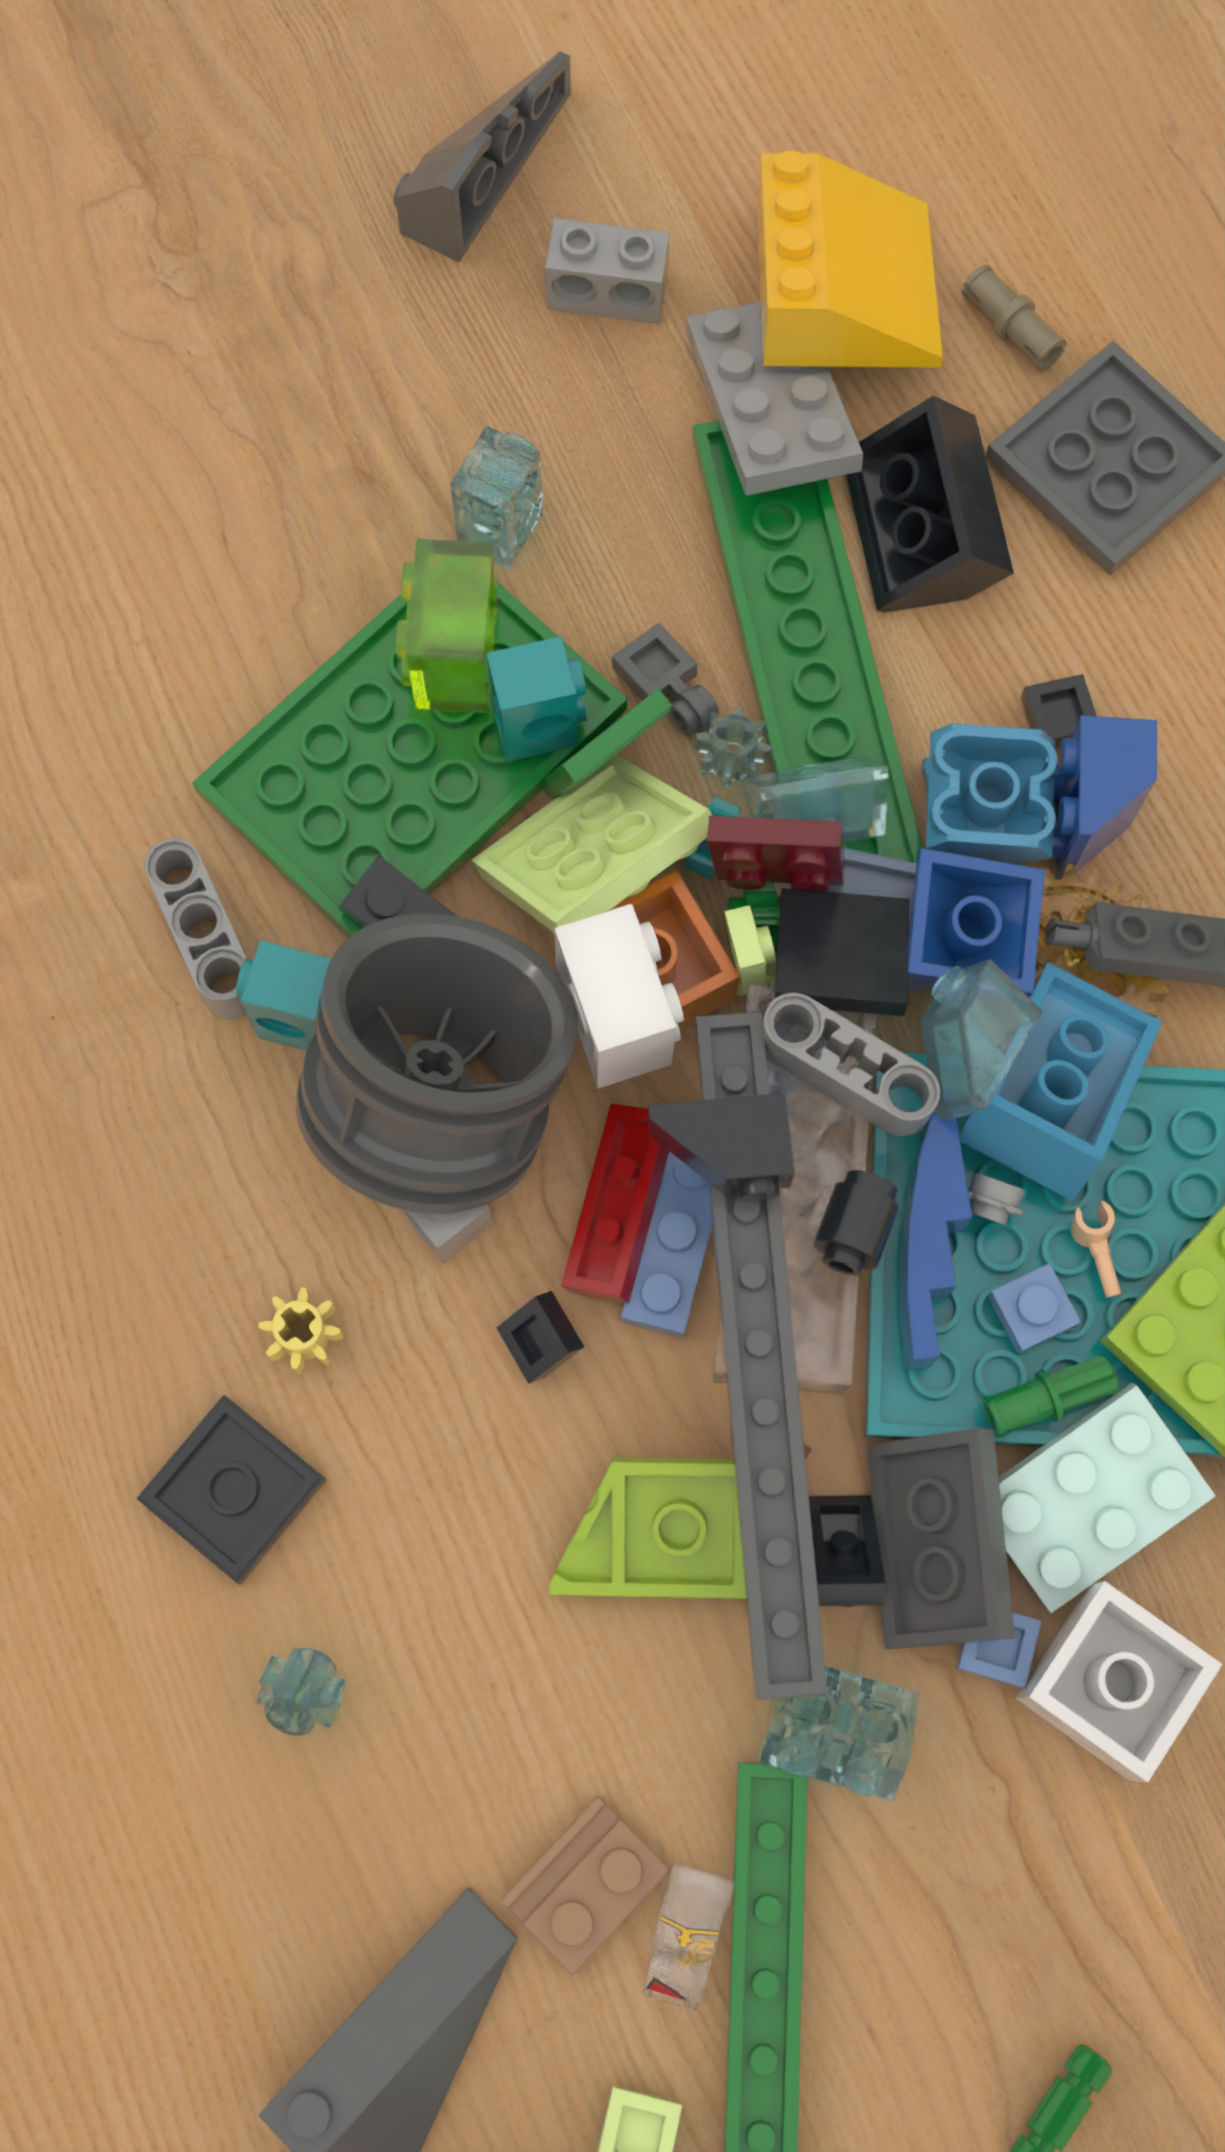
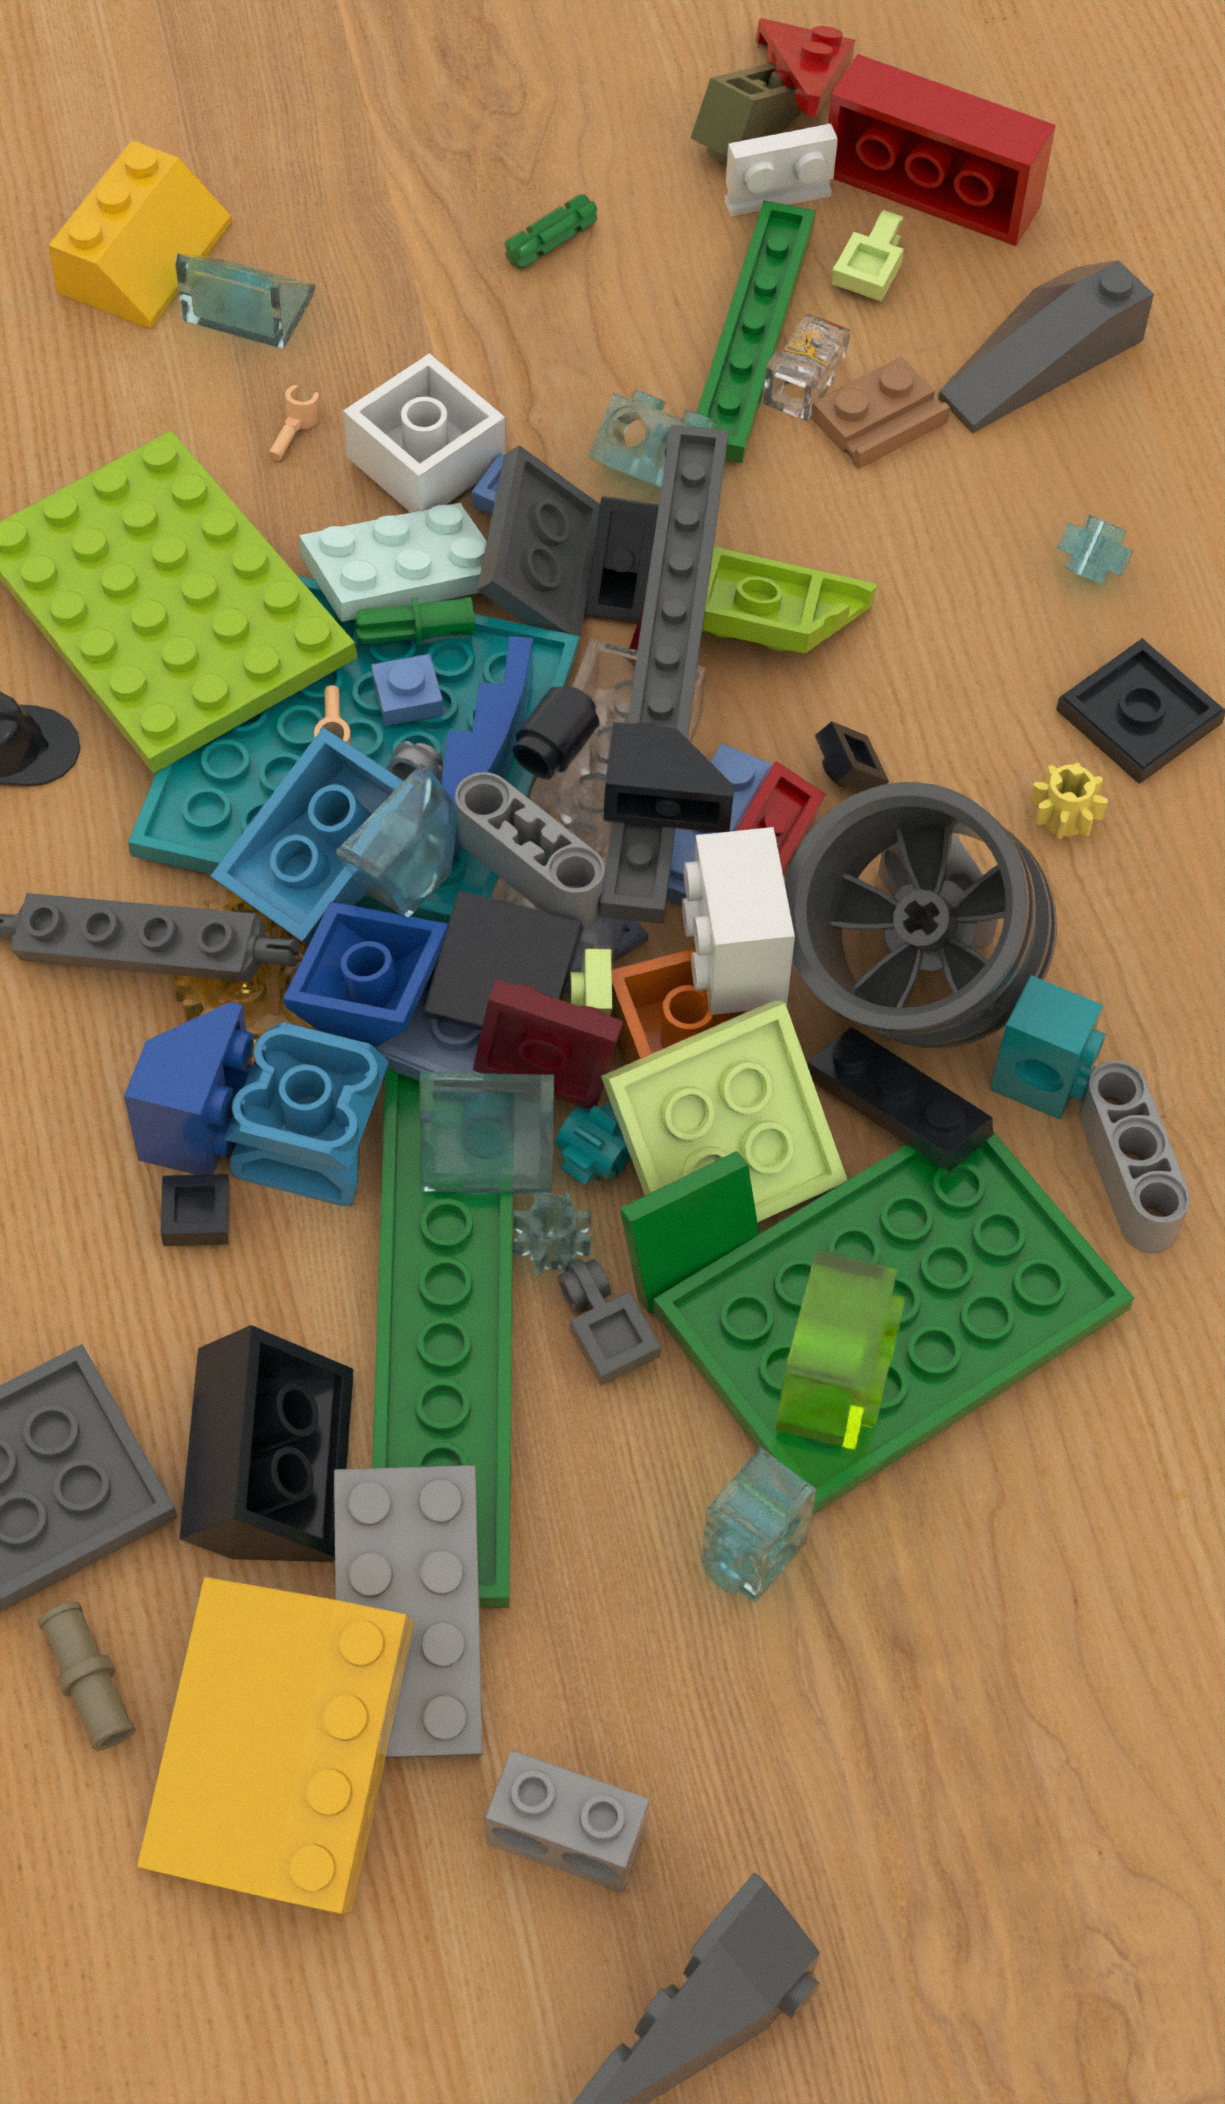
camera: 170 degrees left, 15 degrees down
(536, 698) = (760, 1256): teal brick -> none

